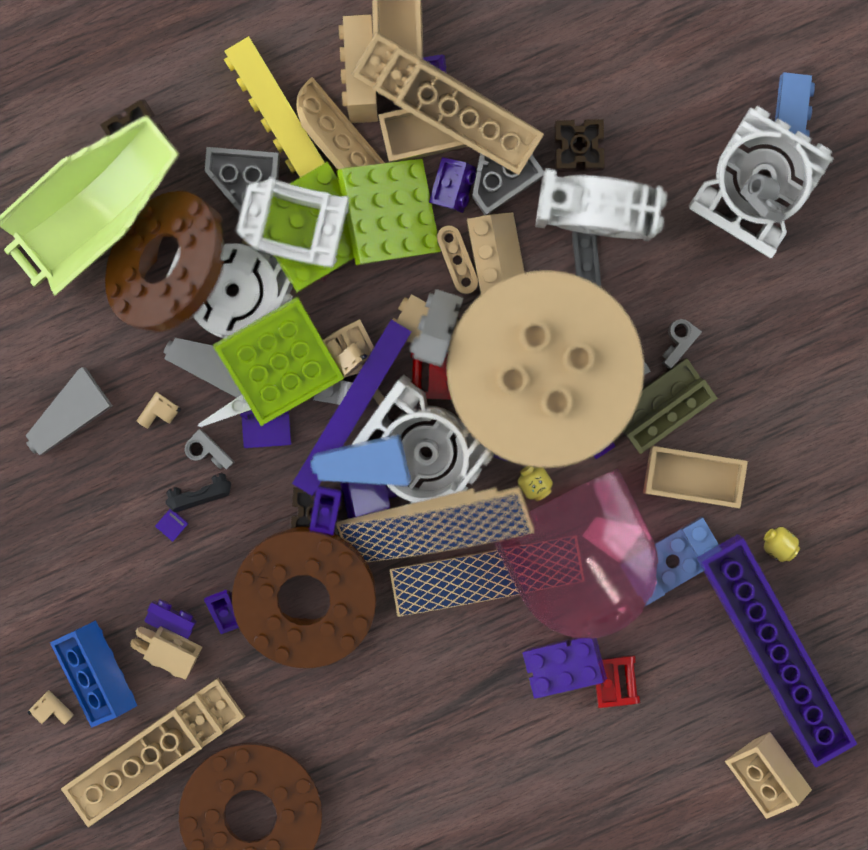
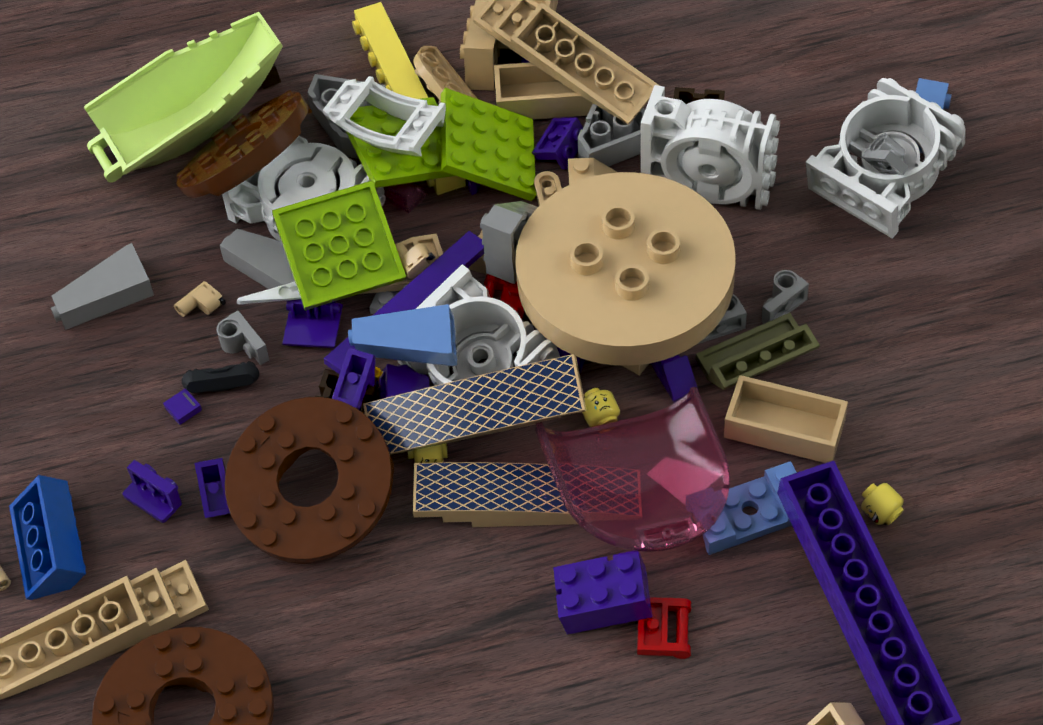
camera: 15 degrees right, 35 degrees down
(167, 650) = (141, 523): tan hinge -> none

